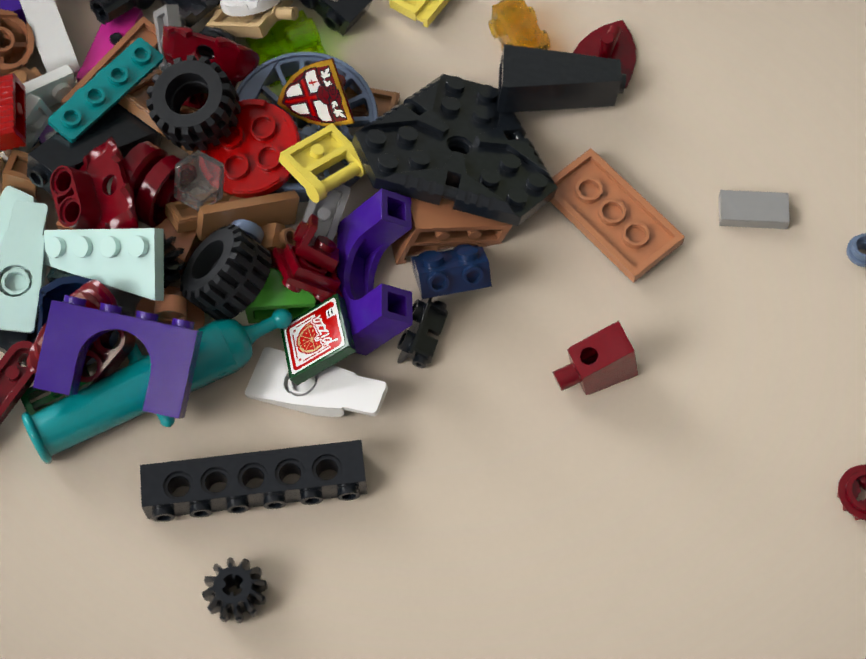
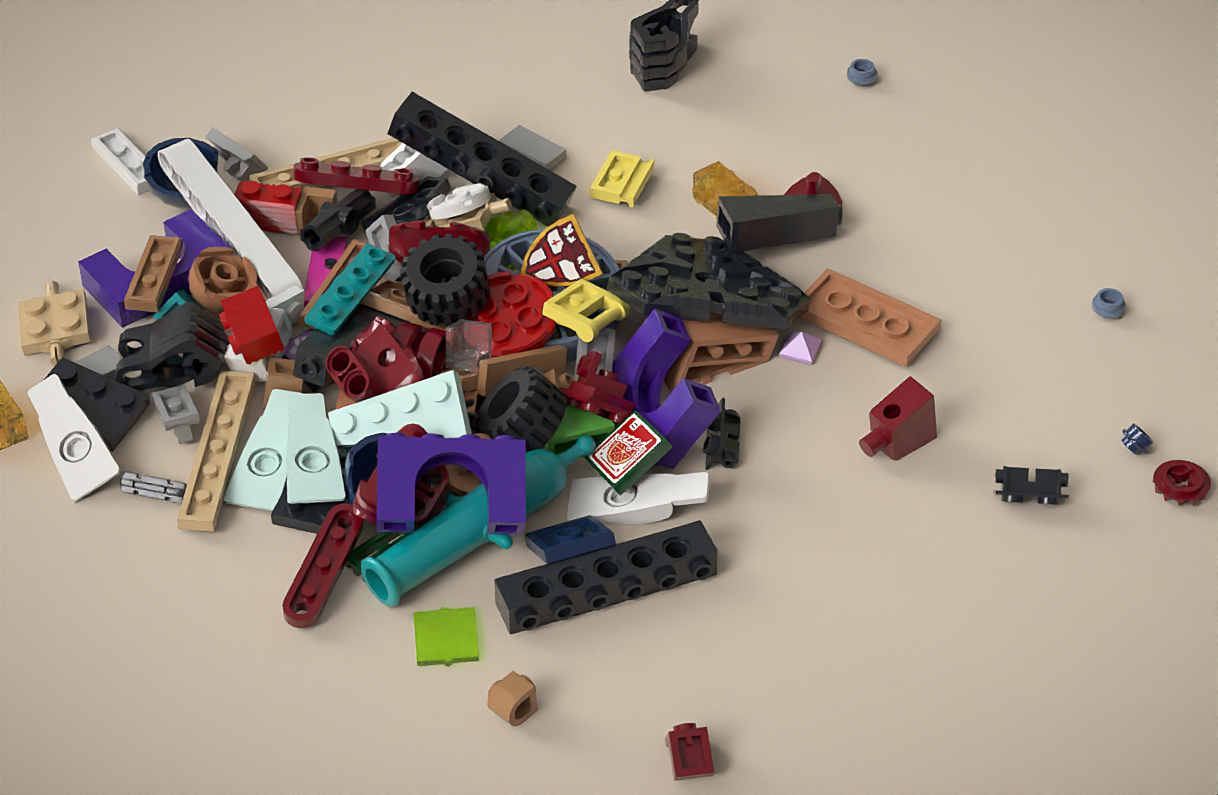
camera: 15 degrees left, 20 degrees down
(86, 508) = (446, 636): none -> clear neon green piece
(118, 606) = (513, 698): none -> medium nougat plate
(225, 602) = (621, 664): black gear -> none
(231, 428) = (569, 539): none -> dark blue plate
(451, 271) = (739, 376): dark blue plate -> none
(536, 235) = (800, 347): none -> lavender slope
(723, 474) = (1016, 484): none -> black hinge
(754, 209) = (995, 292): light grey tile -> none
(837, 430) = (1136, 439): none -> dark blue plate

